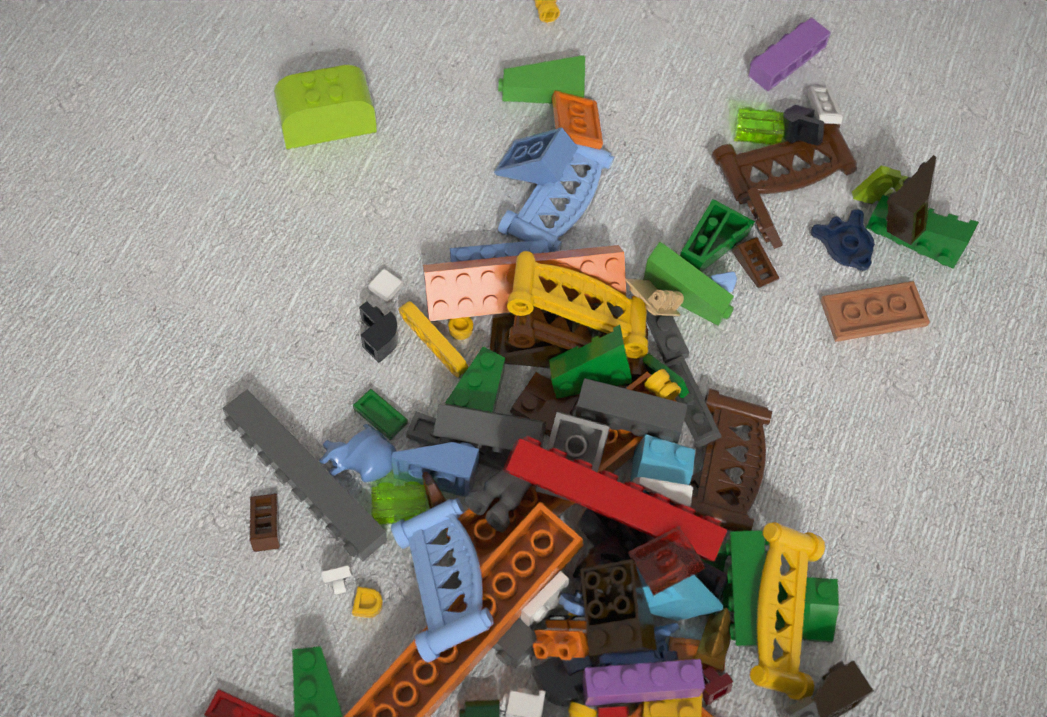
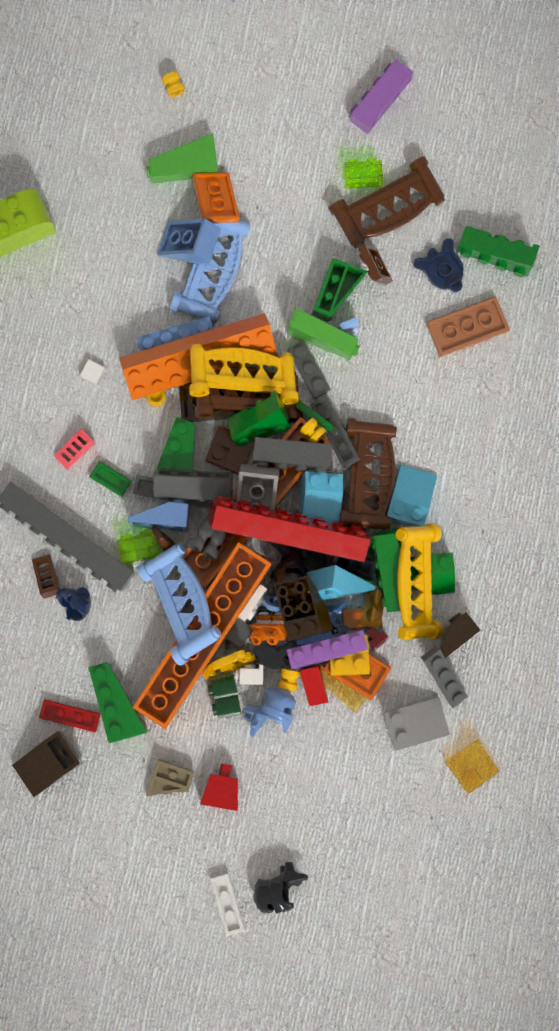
camera: 10 degrees left, 20 degrees up
(296, 558) = (77, 602): none -> dark blue hair
(336, 576) = (106, 608): white tile -> none
(337, 363) = (75, 439): none -> coral slope
(365, 453) = (107, 516): medium blue piece -> none
(367, 603) = (130, 621): yellow tile -> none
(382, 333) = (100, 414): black brick -> none
(433, 339) = (137, 412): yellow beam -> none
(496, 680) = (229, 663): none -> yellow tile
(657, 301) = (298, 353): tan hinge -> none
(666, 560) = (330, 572): clear red tile -> none
(675, 492) = (326, 512): white slope -> none
(758, 252) = (368, 305): reddish brown slope -> none
(784, 498) = (411, 496): none -> medium azure slope
(801, 125) = (396, 172): black brick -> none
(824, 104) = (414, 146): white tile -> none
(879, 184) = (464, 217): lime plate -> none
(911, 204) = (486, 245): dark brown slope -> none

